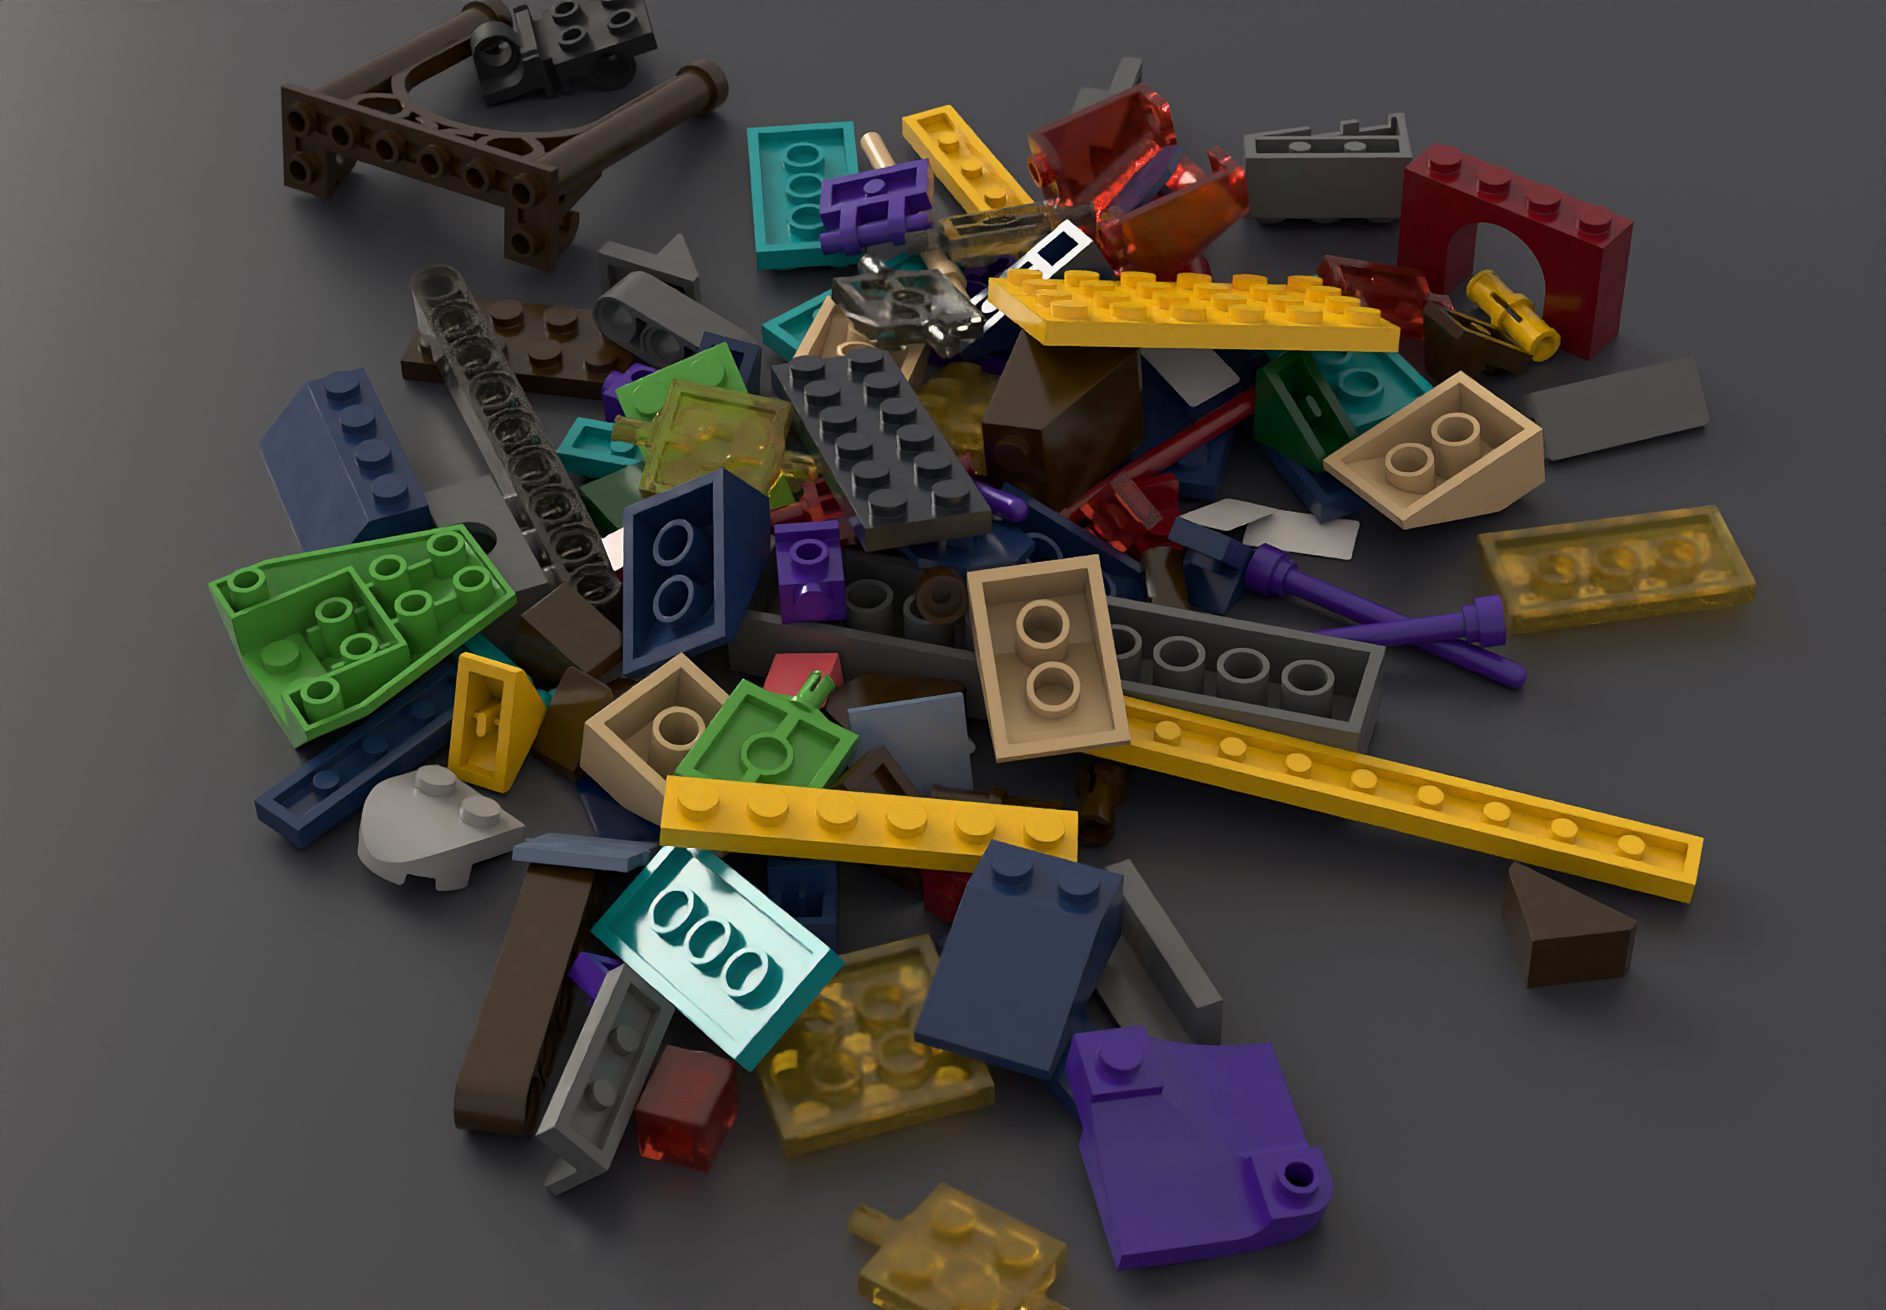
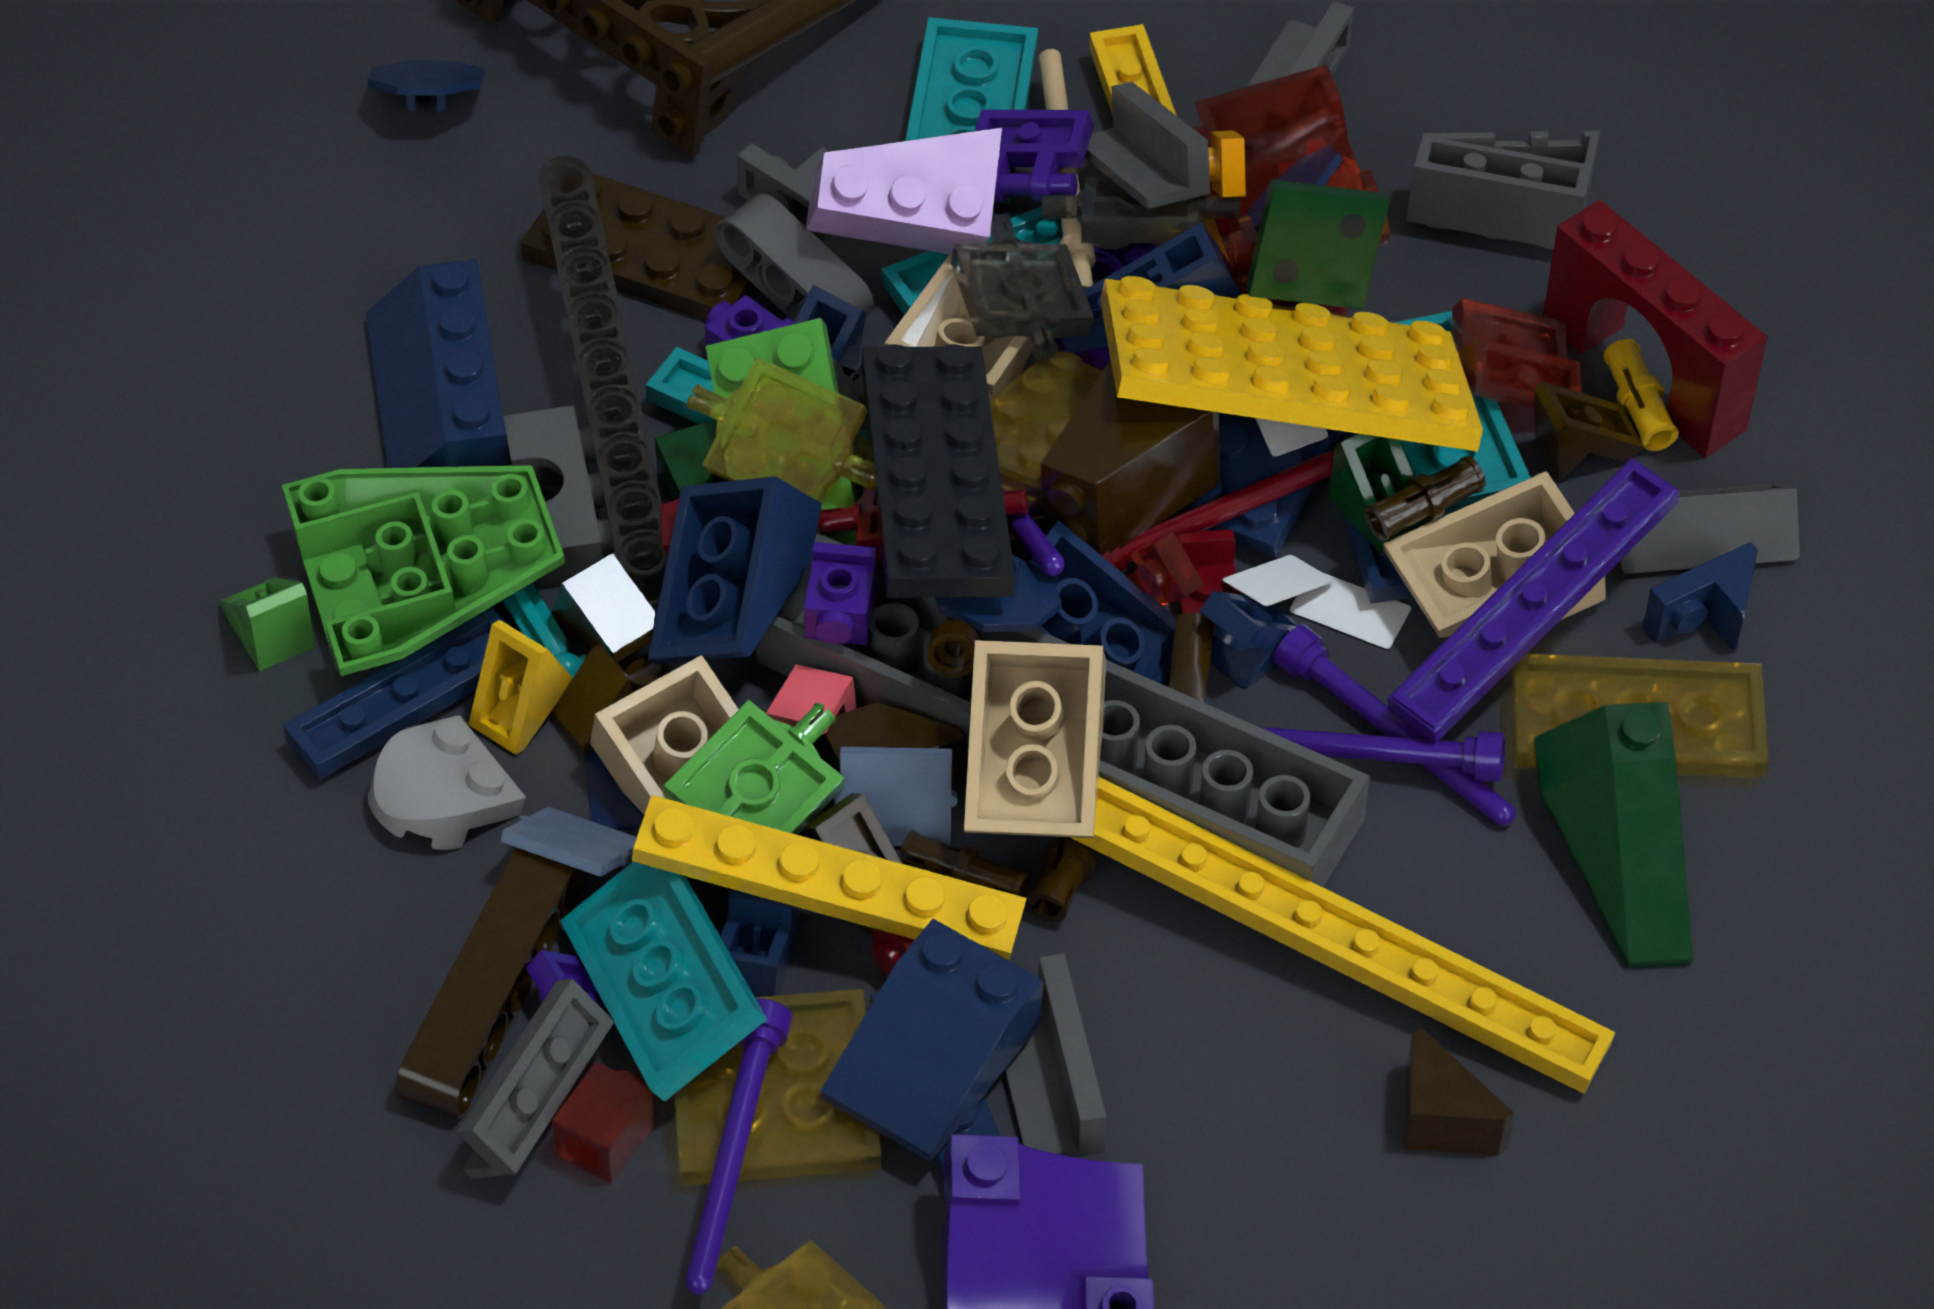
camera: 10 degrees right, 10 degrees up
(222, 713) = (271, 621): none -> bright green slope
(275, 244) = (426, 79): none -> dark blue piece
(775, 243) = (909, 191): none -> lavender wedge
(836, 1003) = (732, 1147): none -> dark purple piece
(998, 177) = (1150, 150): none -> dark grey panel
(1073, 175) = (1227, 163): none -> light orange plate
(1186, 212) = (1317, 244): none -> dark green tile
(1352, 412) = (1424, 498): none -> dark brown pin
(1487, 477) = (1533, 600): none -> dark purple tile
(1635, 639) = (1618, 806): none -> dark green wedge
(1645, 457) = (1709, 592): none -> dark blue slope

